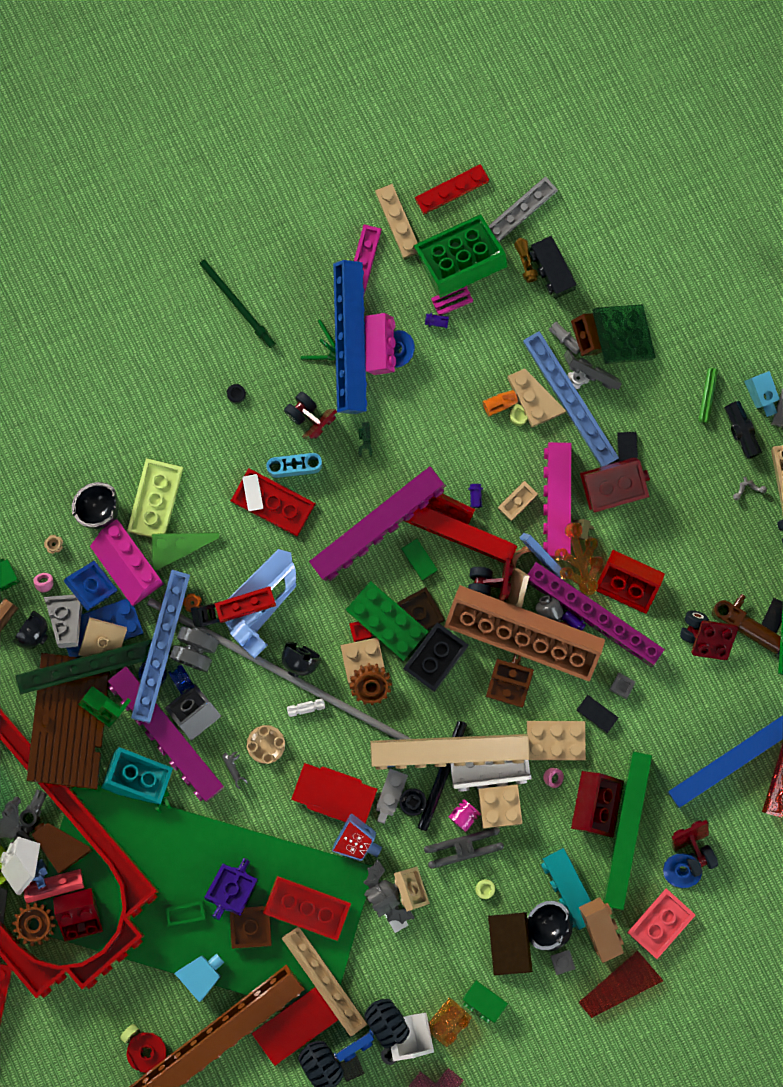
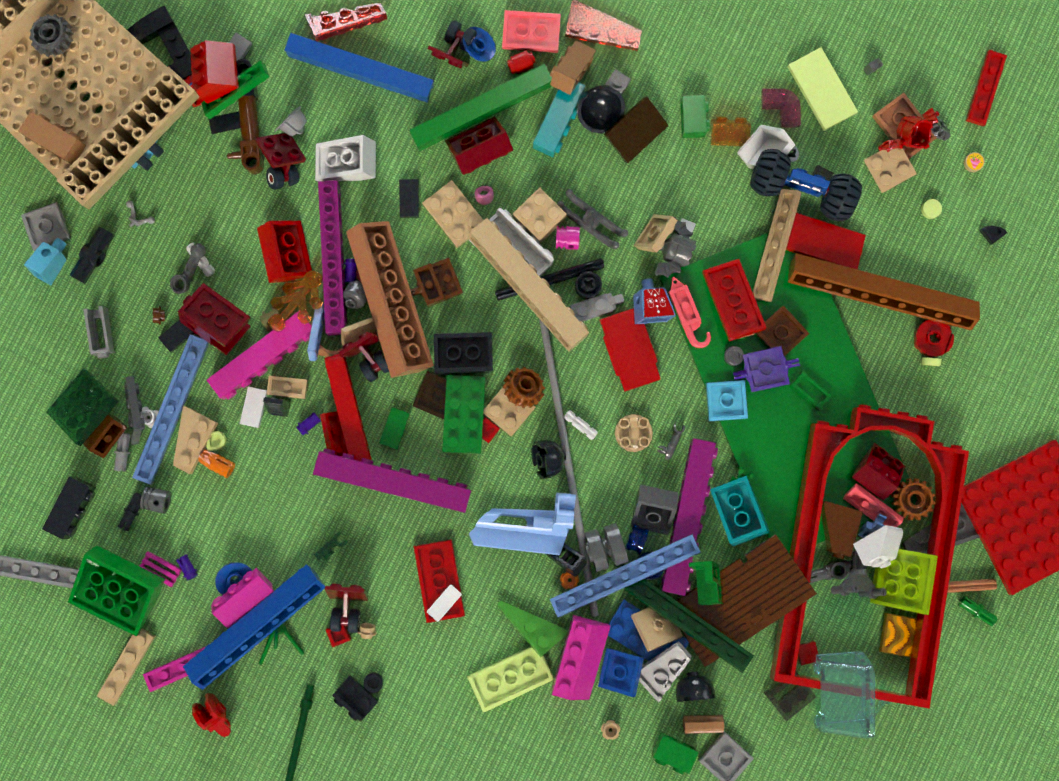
camera: 130 degrees left, 5 degrees up
(46, 586) = (648, 707): bright pink piece -> none
(95, 505) = (554, 721): black cylinder -> none
(200, 975) = (848, 341): medium azure torso -> none
(231, 838) = (726, 400): none -> medium azure tile
(235, 370) = (354, 699): none -> black bracket
(245, 604) = (539, 535): red plate -> none
(263, 873) = (733, 356): none -> flat silver tile
(279, 418) = (367, 630): none -> tan plate
(291, 392) = (338, 638): none -> red tile
(294, 458) = (388, 588): medium azure beam -> none
(308, 256) = (212, 715): none -> red hinge
(326, 863) = (687, 312): none -> coral plate
(451, 189) = (64, 642): red plate -> none
(485, 889) = (609, 181): yellowish green tile -> none
(507, 335) = (155, 500): none -> dark grey piece
(507, 482) = (277, 406): none -> black slope
(513, 311) = (130, 512): none -> black axle
(521, 246) = (72, 545): pearl gold piece -> none
(522, 463) = (253, 407): none -> white tile
(622, 685) = (372, 195): flat silver plate -> none
(640, 893) = (521, 62): none -> red brick
(653, 445) = (158, 315): none -> reddish brown plate
(667, 687) = (346, 159): none -> white slope
(674, 511) = (208, 269): none -> white axle
(678, 384) = (92, 332): none -> light grey window
(680, 512) = (197, 252): none -> dark grey piece
(708, 395) = (84, 303): bright green axle -> none
(730, 667) = (293, 123): none -> light grey piece

